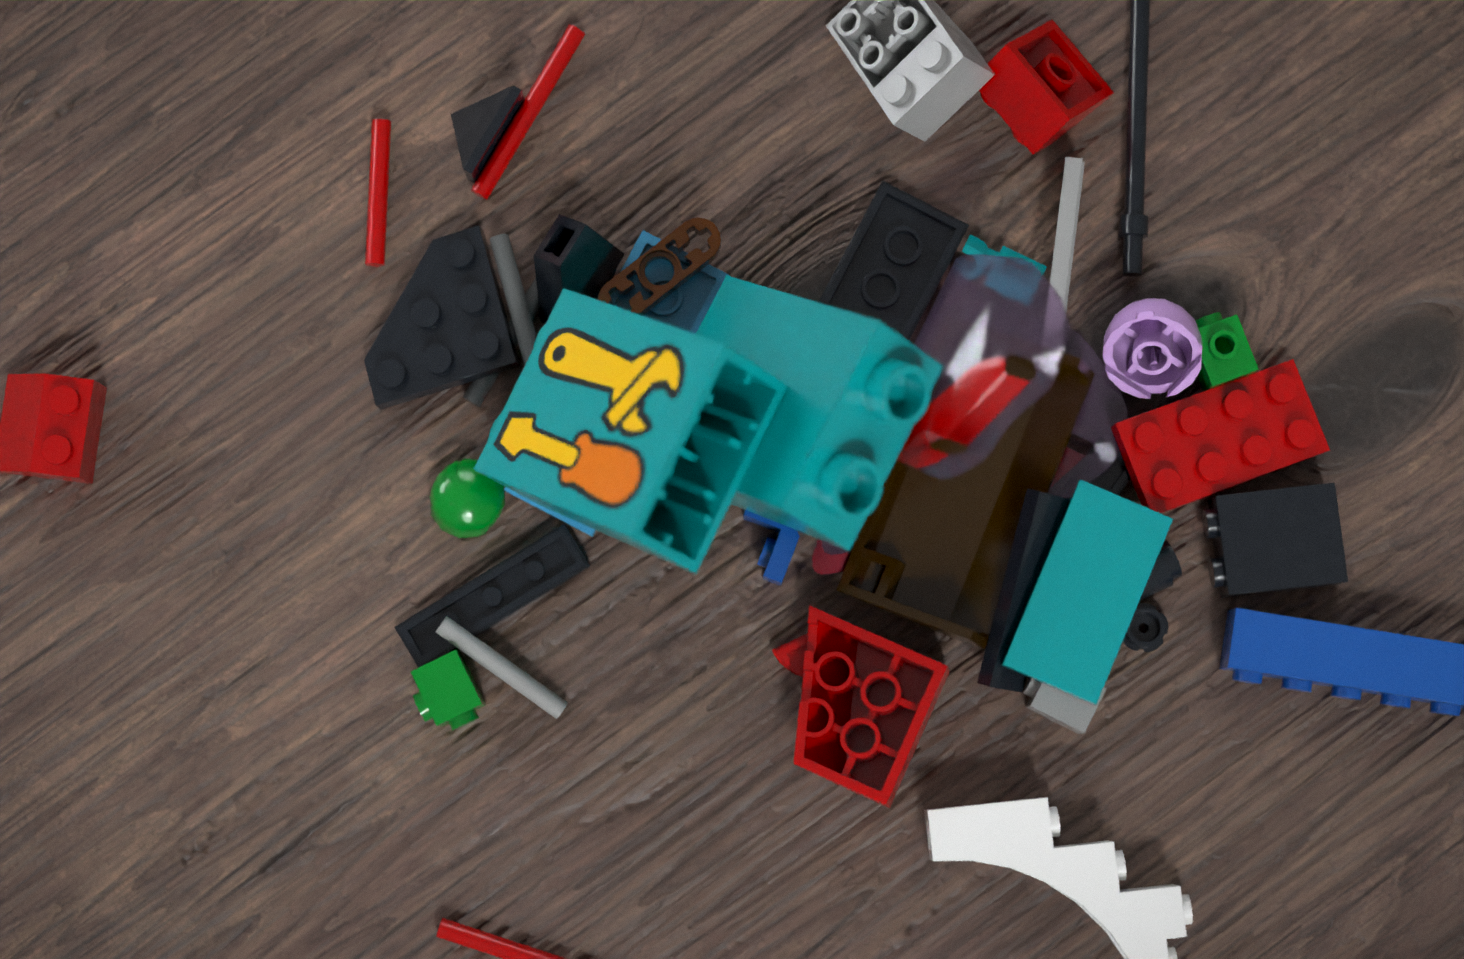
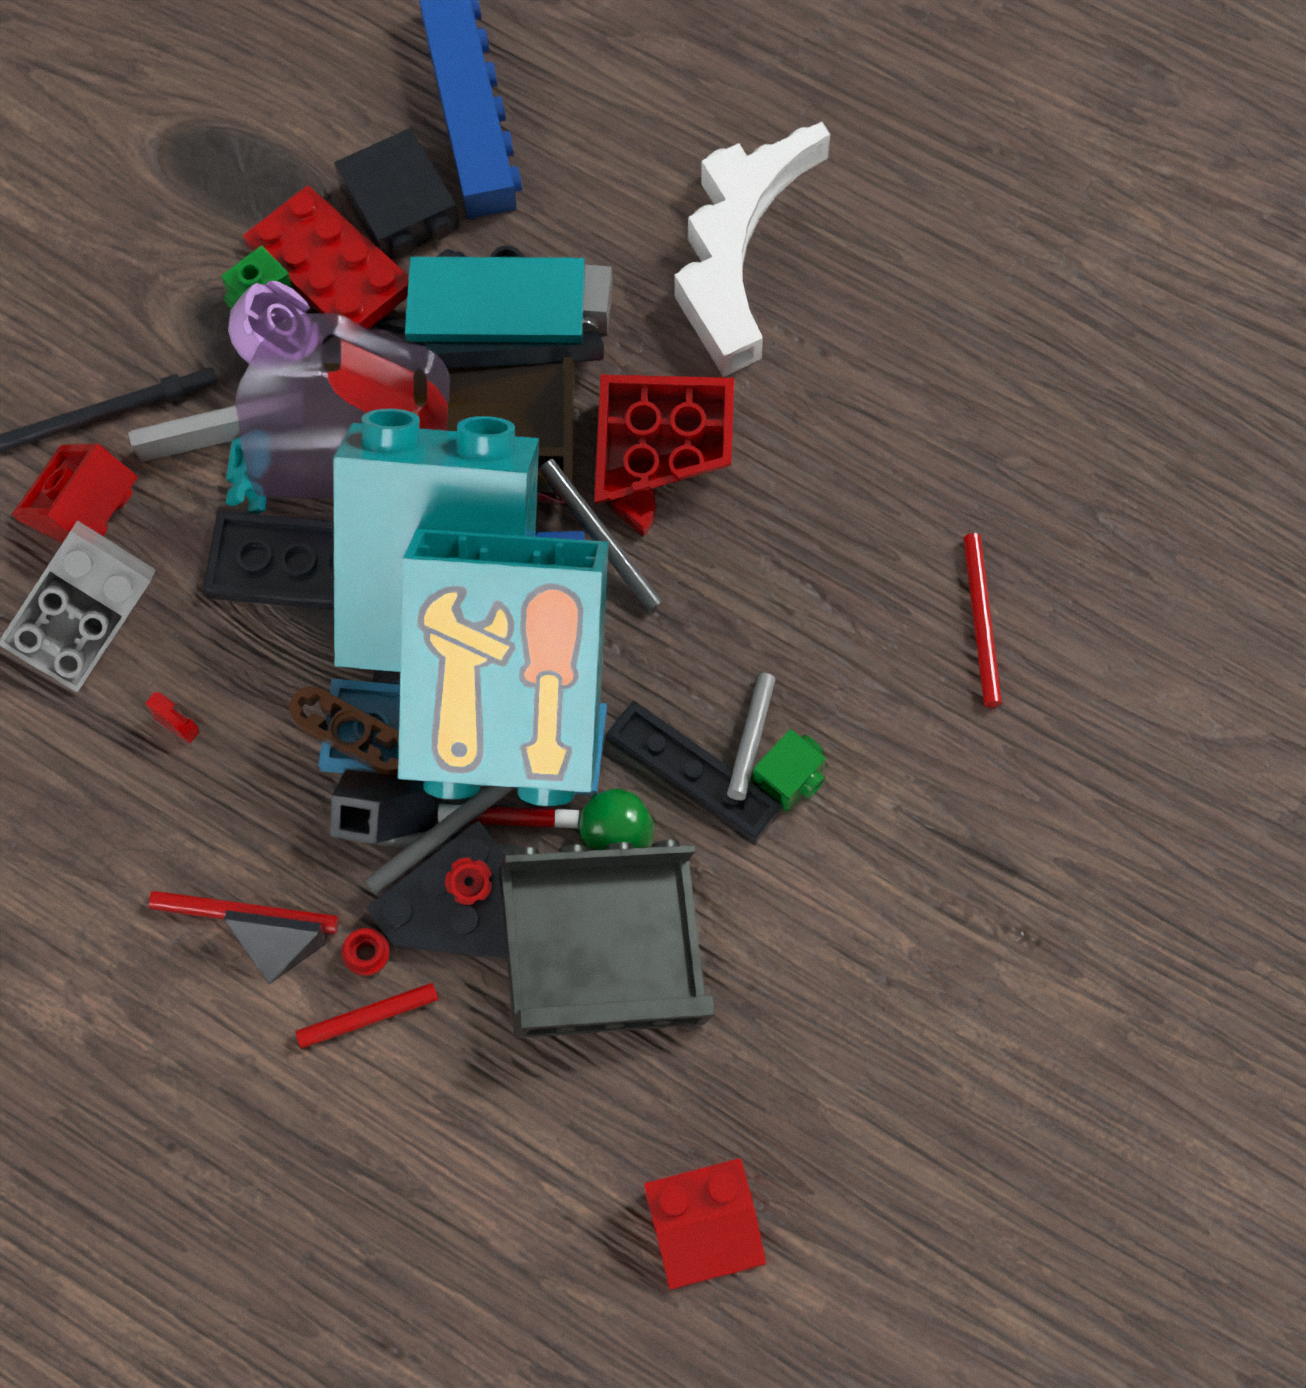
camera: 110 degrees left, 15 degrees down
(344, 435) = (602, 939): none -> pearl dark grey panel
(437, 197) = (360, 939): none -> red plate
(442, 322) = (455, 881): none -> red plate
(754, 107) = (163, 712): none -> red tile
(777, 600) = (599, 532): none -> dark grey bar

